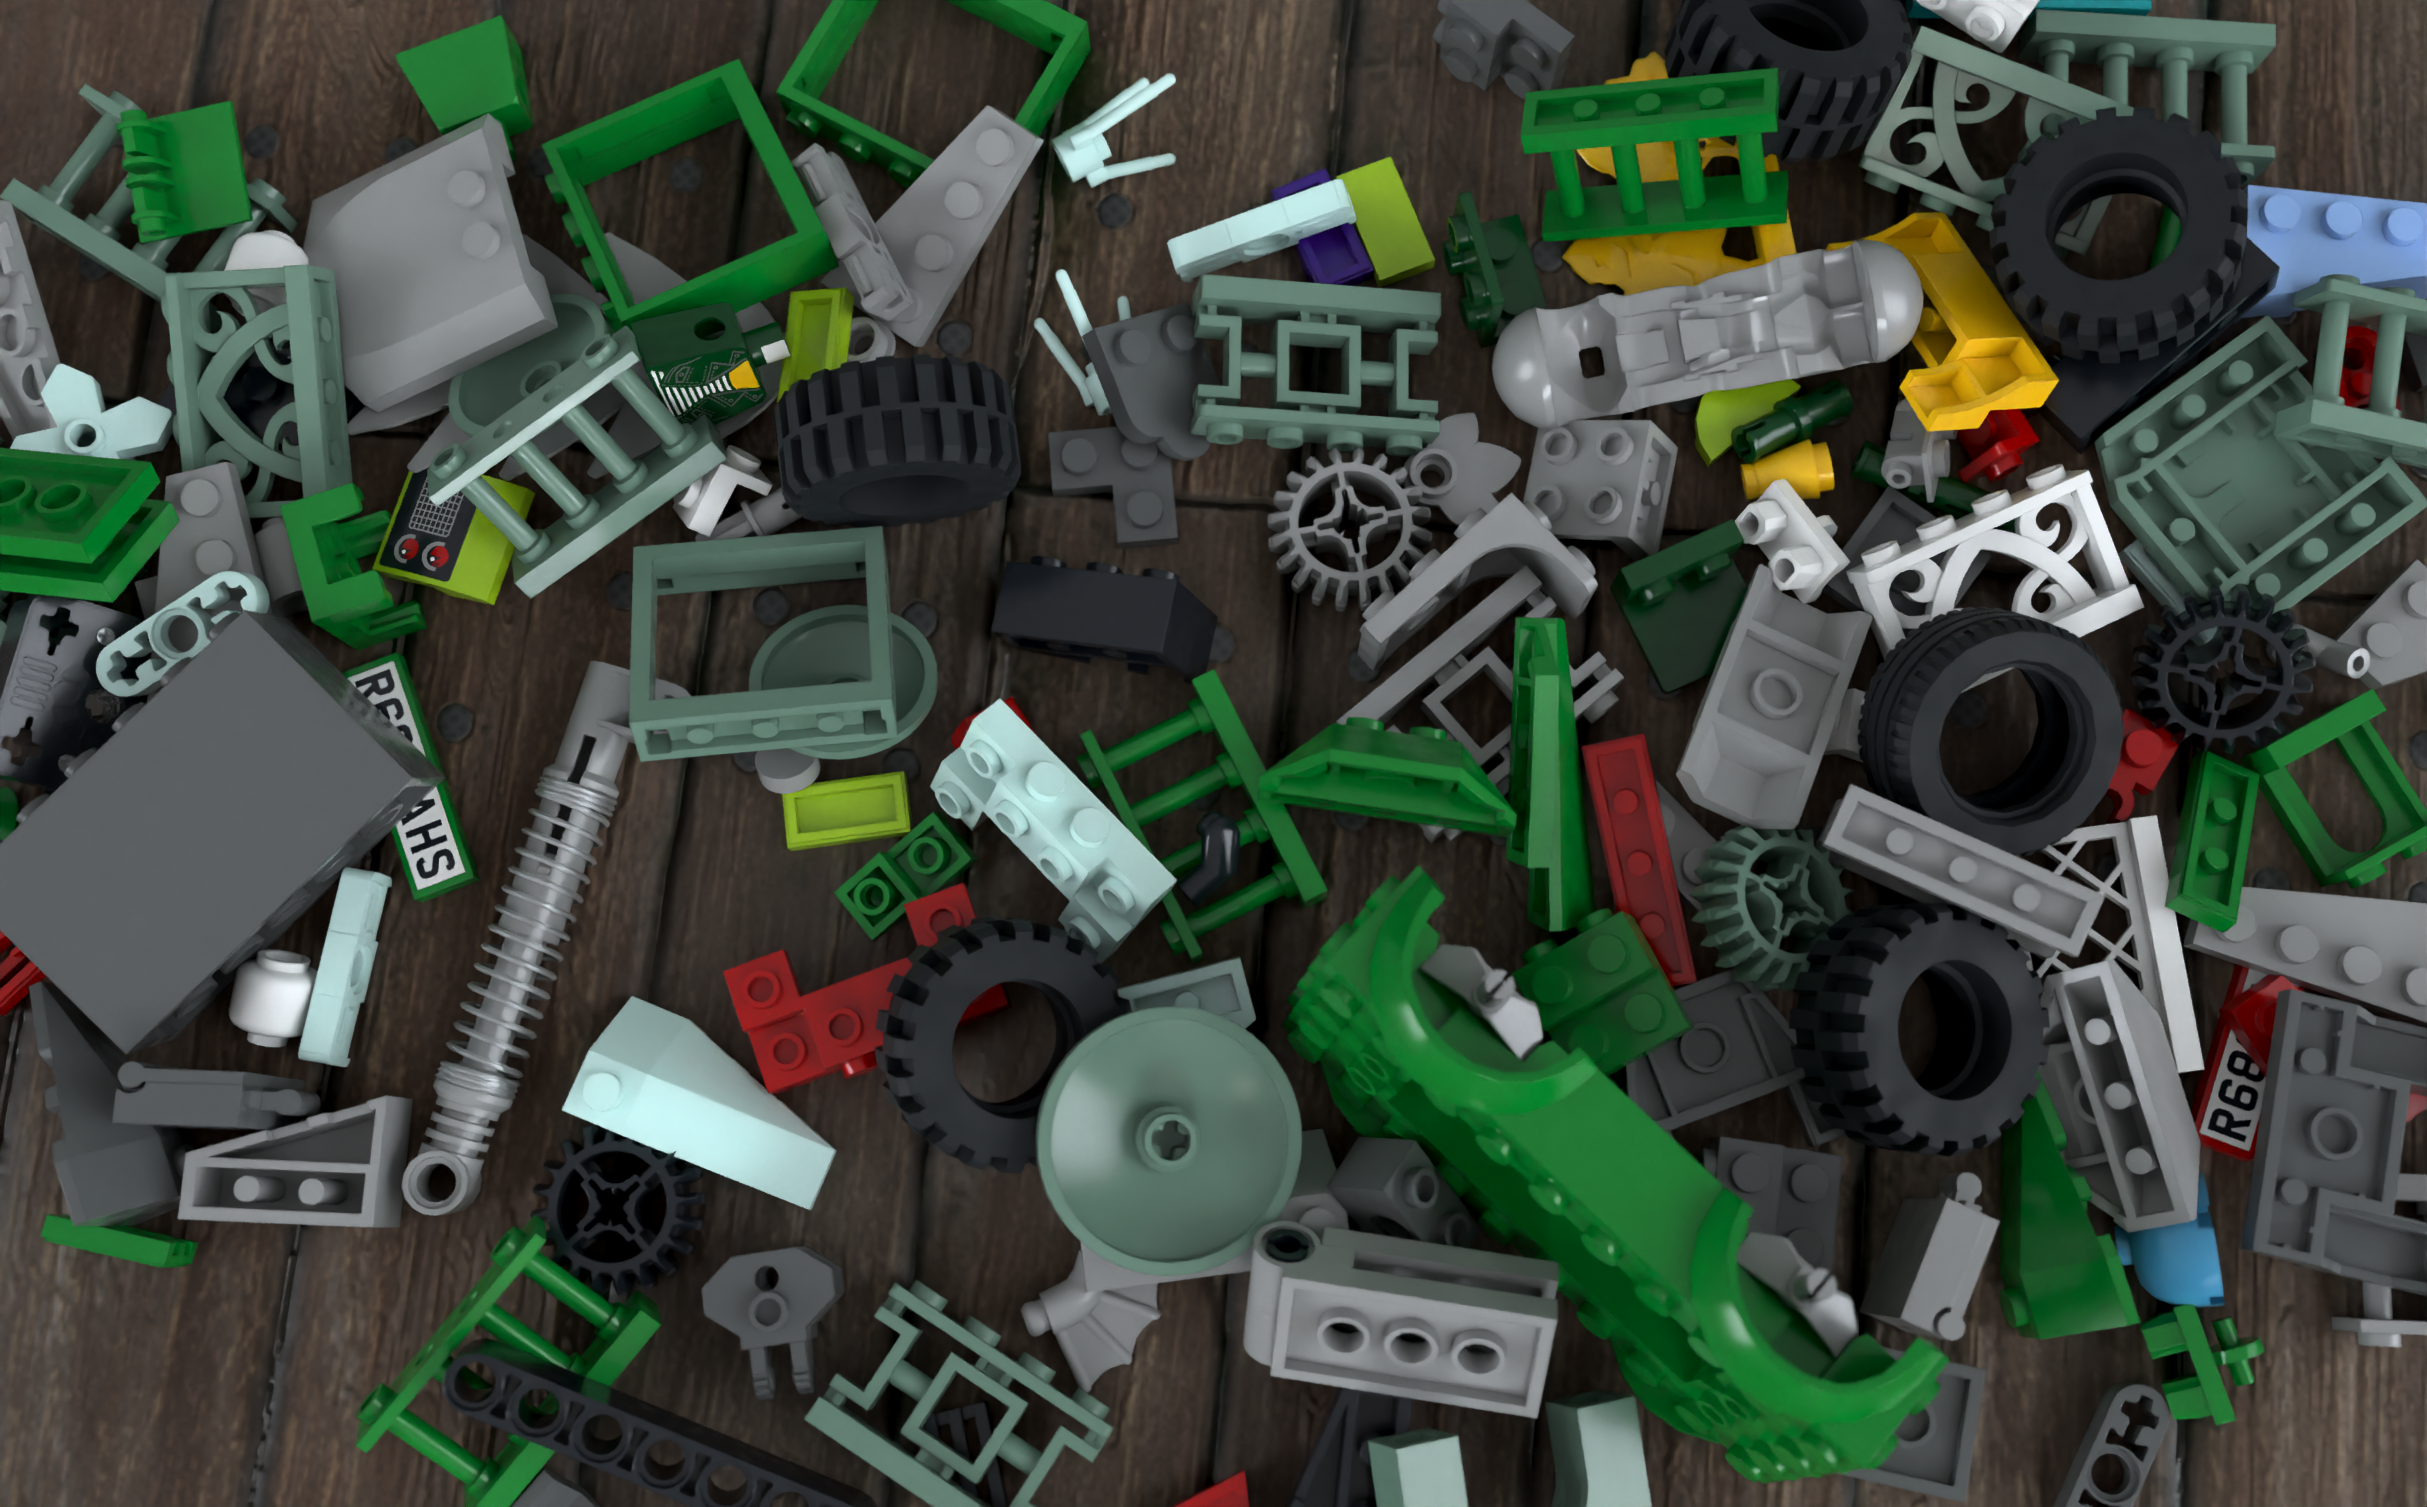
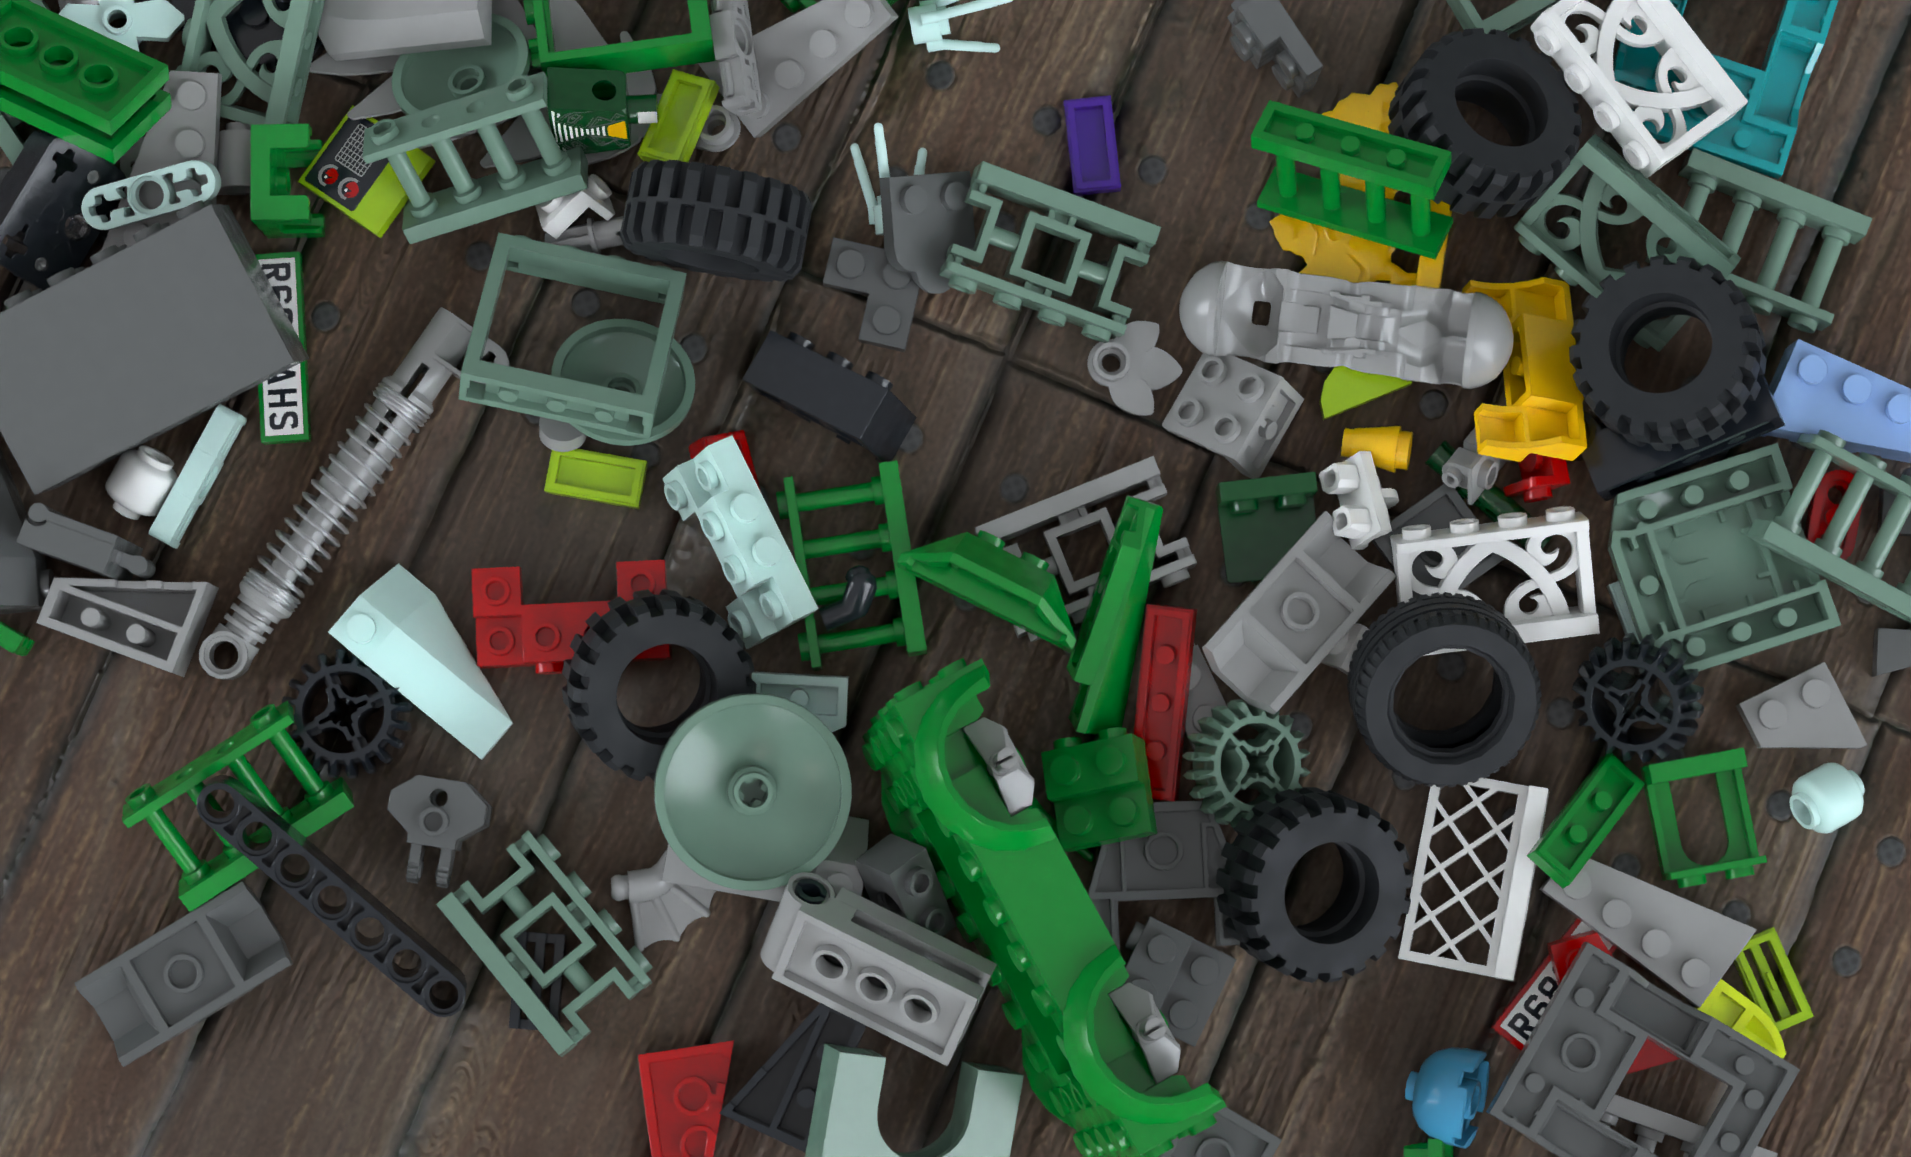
camera: 15 degrees right, 5 degrees up
(909, 871) = (624, 538): green slope -> none
(1262, 230) = (1044, 133): light aqua piece -> none
(1324, 537) = (1012, 384): light grey gear -> none
(1387, 222) = (1142, 151): lime tile -> none
(1485, 549) = (1125, 431): light grey bracket -> none
(1492, 270) = (1212, 220): dark green bracket -> none
(1792, 420) = (1394, 407): dark green pin -> none
(1932, 1261) = (1266, 1049): light grey piece -> none
(1953, 868) = (1376, 783): light grey fence -> none
(2050, 1260) = (1356, 1081): green wedge -> none
(2119, 1098) = (1440, 978): light grey wedge -> none
(2141, 763) = (1556, 741): red plate -> none
(2332, 655) = (1725, 708): light grey arm -> none

